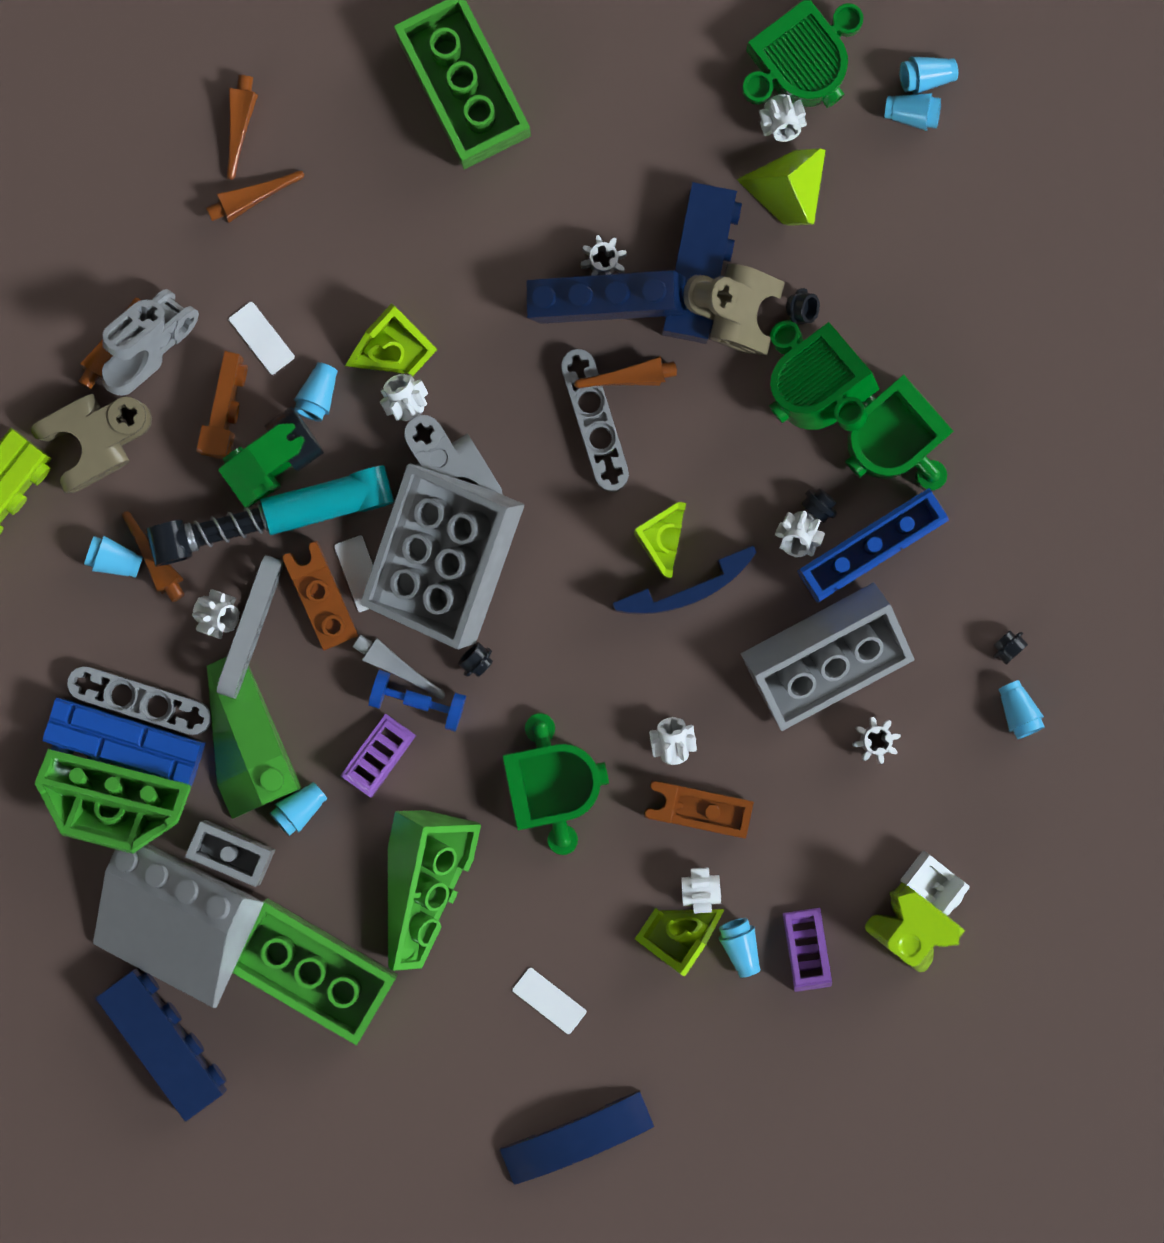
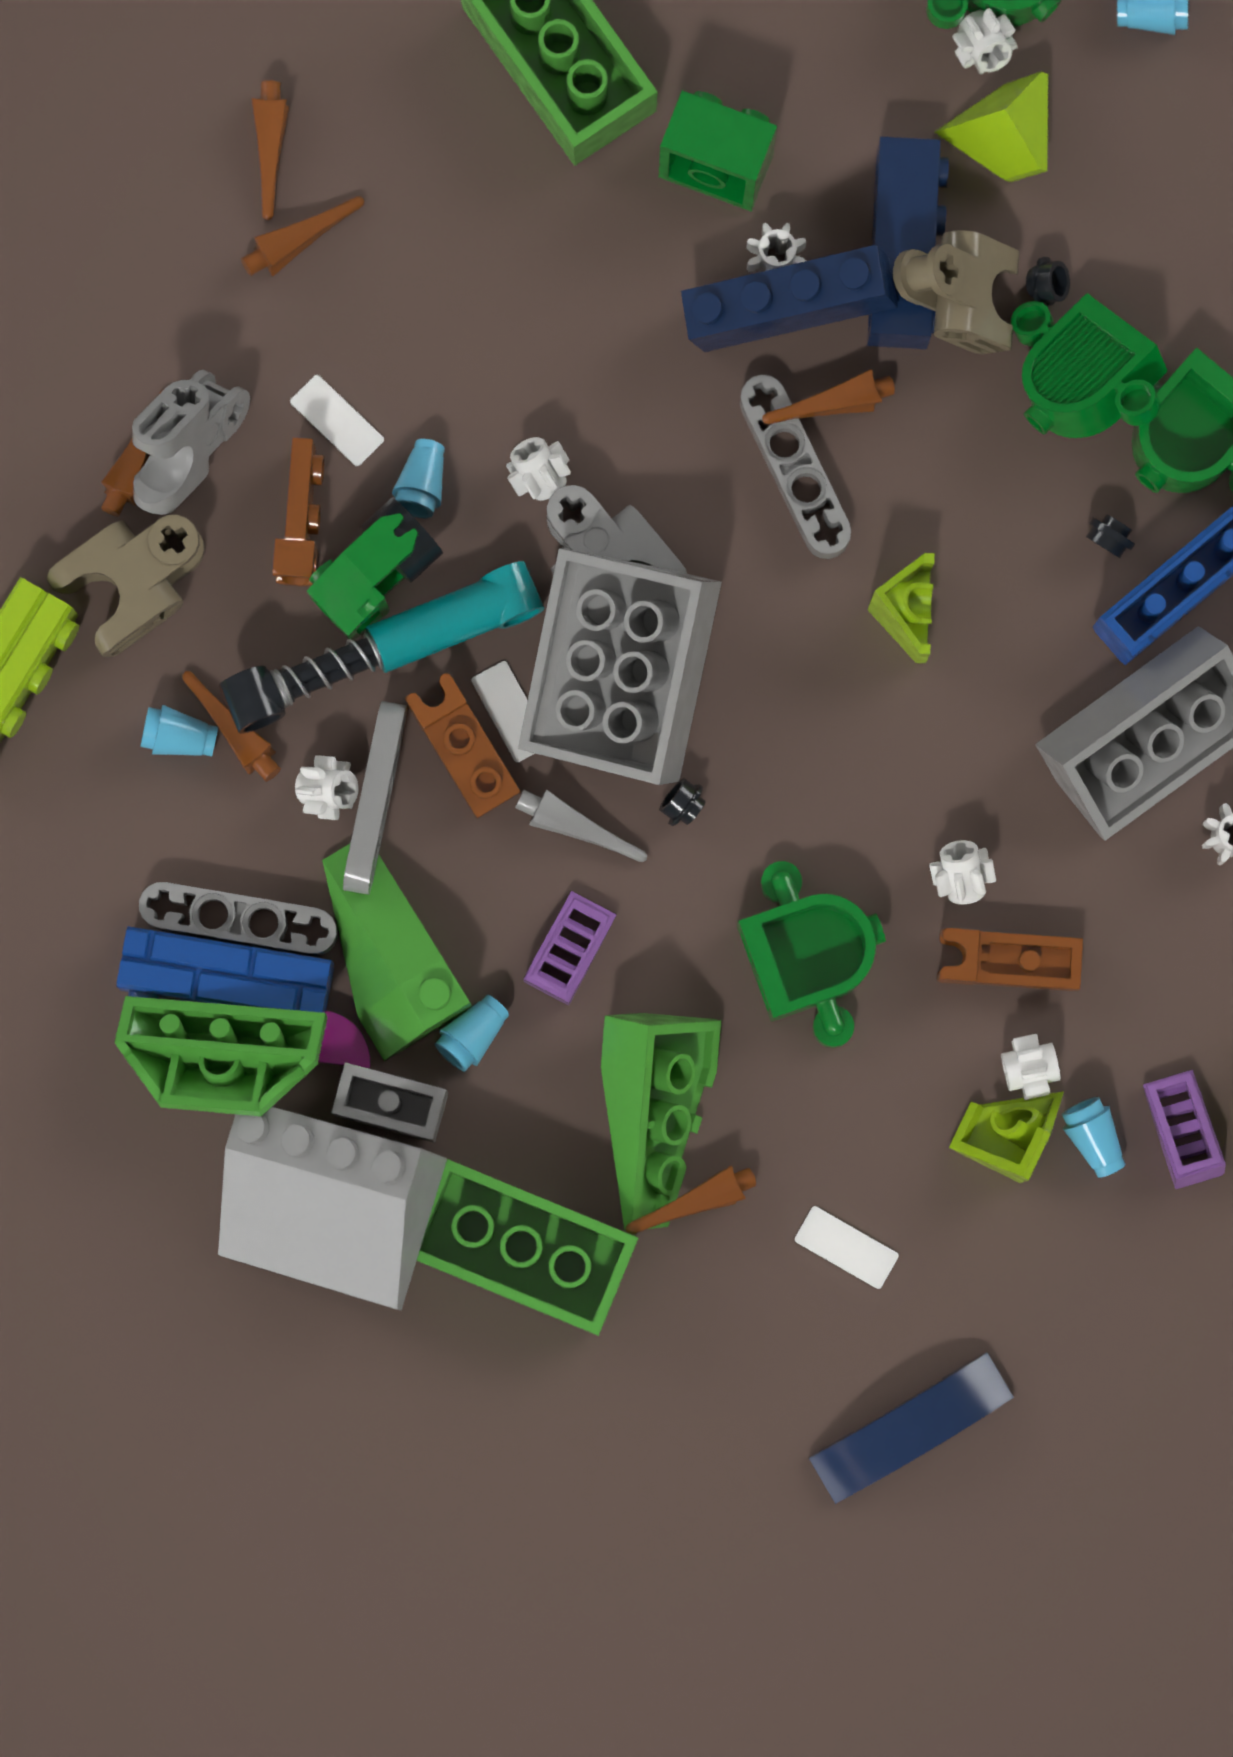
camera: 10 degrees left, 5 degrees down
(162, 1043) = (330, 1376): dark blue brick -> none
(203, 802) = (343, 1043): none -> magenta tile
(392, 345) = (512, 403): lime slope -> none
(416, 700) = (611, 866): blue wheel -> none
(458, 949) = (716, 1192): none -> dark orange piece
(569, 174) = (717, 149): none -> green brick
(643, 604) = (896, 697): dark blue slope -> none
(800, 534) = (1090, 576): white gear -> none

